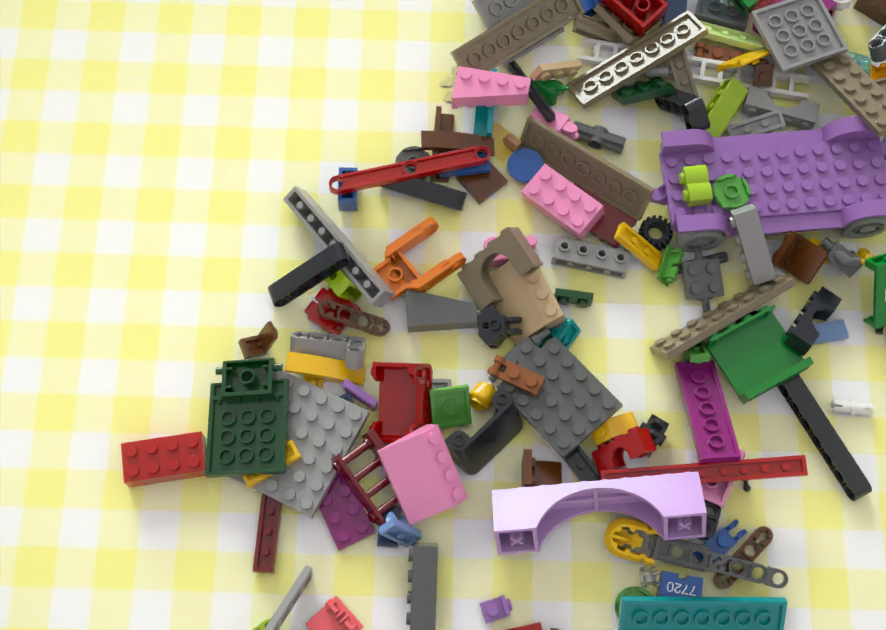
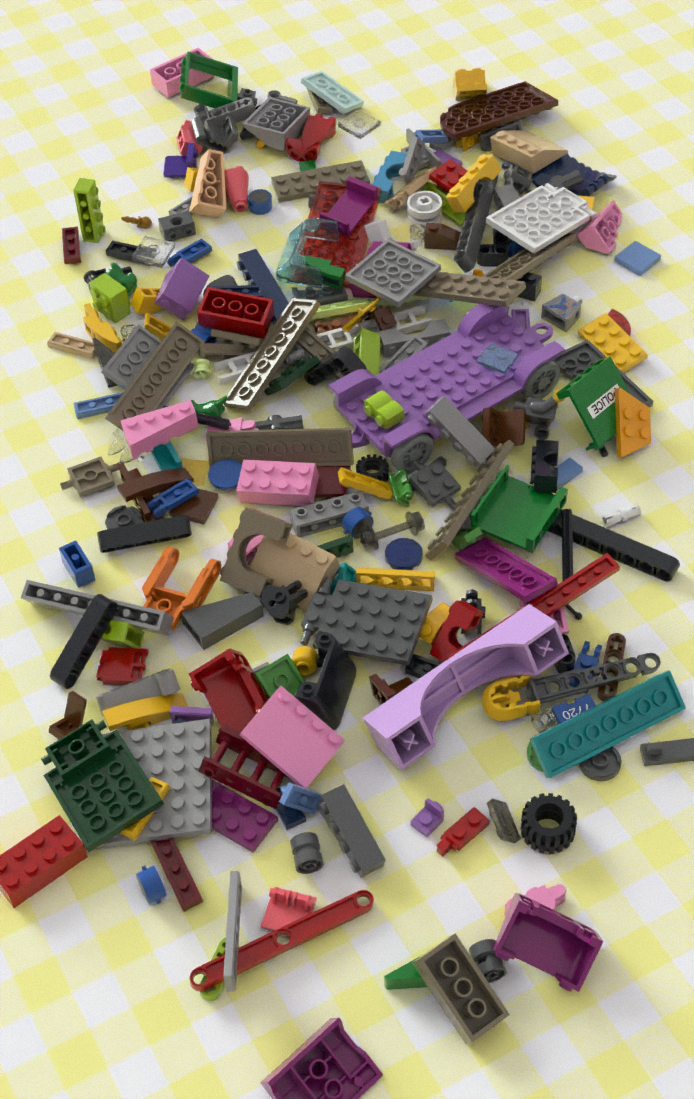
camera: 25 degrees left, 20 degrees down
(239, 536) = (151, 884): none -> blue piece
(353, 320) = (146, 655): reddish brown beam -> none
(377, 582) = (306, 853): none -> dark grey wheel
(396, 172) = (115, 526): red beam -> none
(409, 102) = (90, 476): none -> dark tan plate
(457, 27) = (96, 405): none -> medium blue tile
(512, 142) = (203, 463): medium nougat tile -> none
(516, 376) = (326, 622): dark orange plate -> none
(556, 70) = (208, 391): tan plate -> none
(568, 39) = (202, 369): none -> yellowish green wheel
(609, 282) = (356, 521): none -> blue piece
(609, 357) = (397, 579): none -> yellow fence
(631, 335) = (403, 554): none -> clear blue tile
(659, 309) = (414, 523): none -> clear smoke piece
(731, 192) = (415, 402): bright green tile -> none
(776, 419) = (567, 544): none -> black axle
(835, 276) = (541, 432): none -> dark grey hinge
(837, 183) = (497, 358): none -> clear light blue piece

